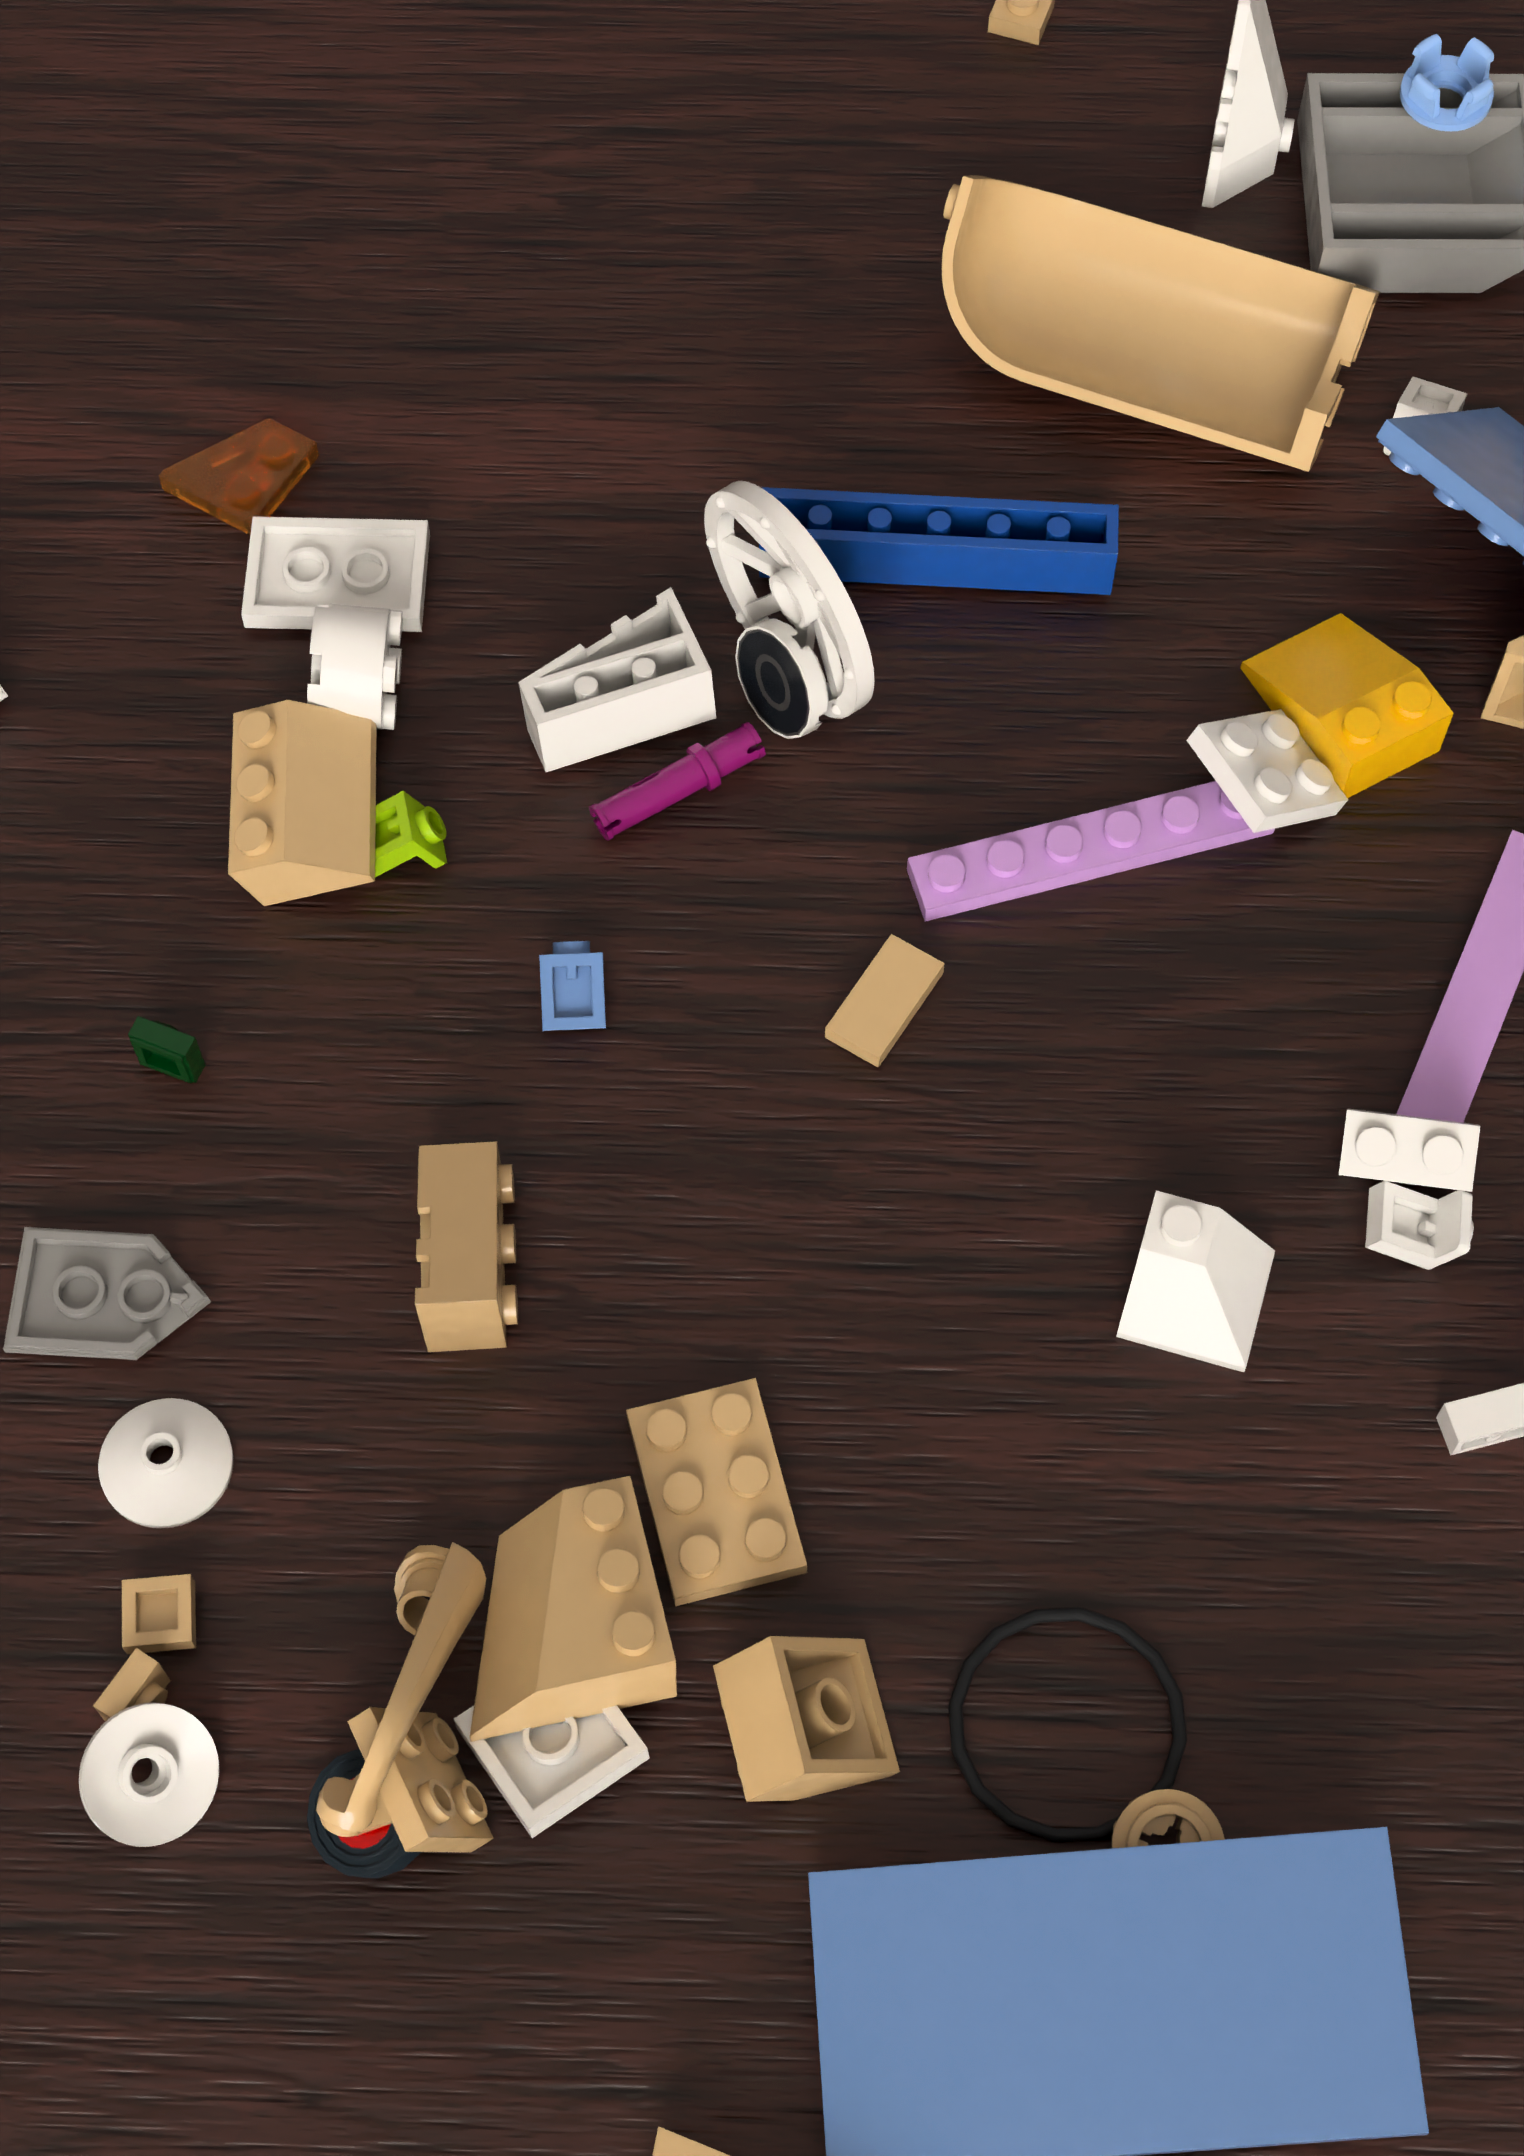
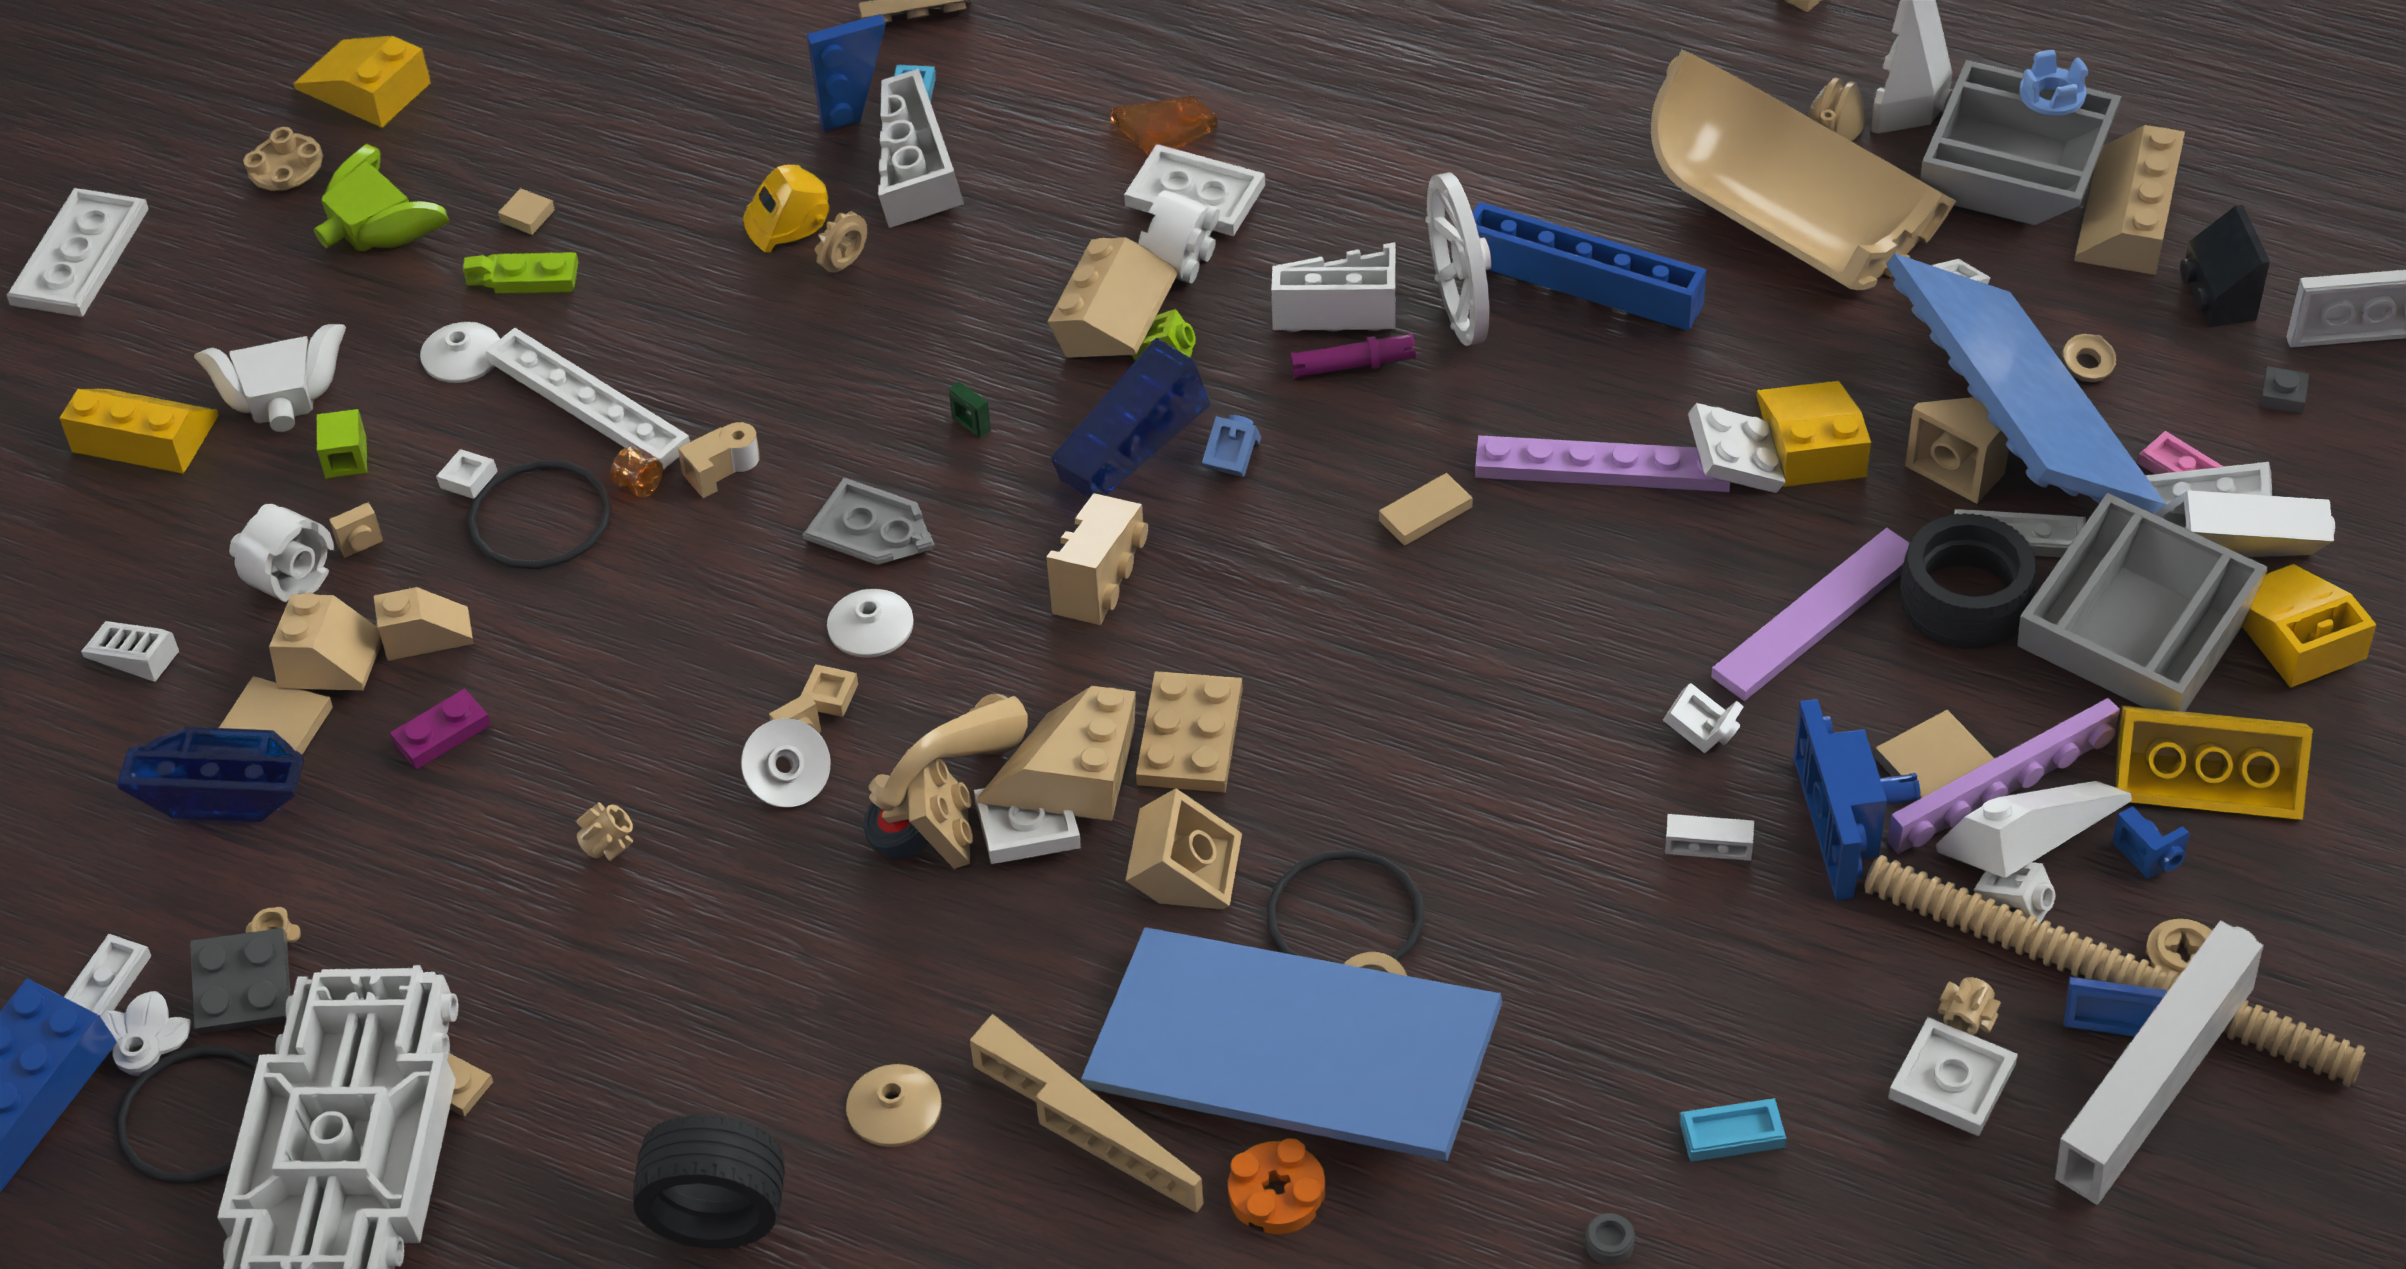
camera: 25 degrees right, 15 degrees down
(417, 1002) = (1132, 420): none -> clear blue wedge
(781, 678) = (1442, 312): tile -> none
(1156, 189) = (1839, 109): none -> tan hat
(1196, 1283) = (1544, 707): white slope -> none
(1409, 1149) = (1715, 670): white brick -> none

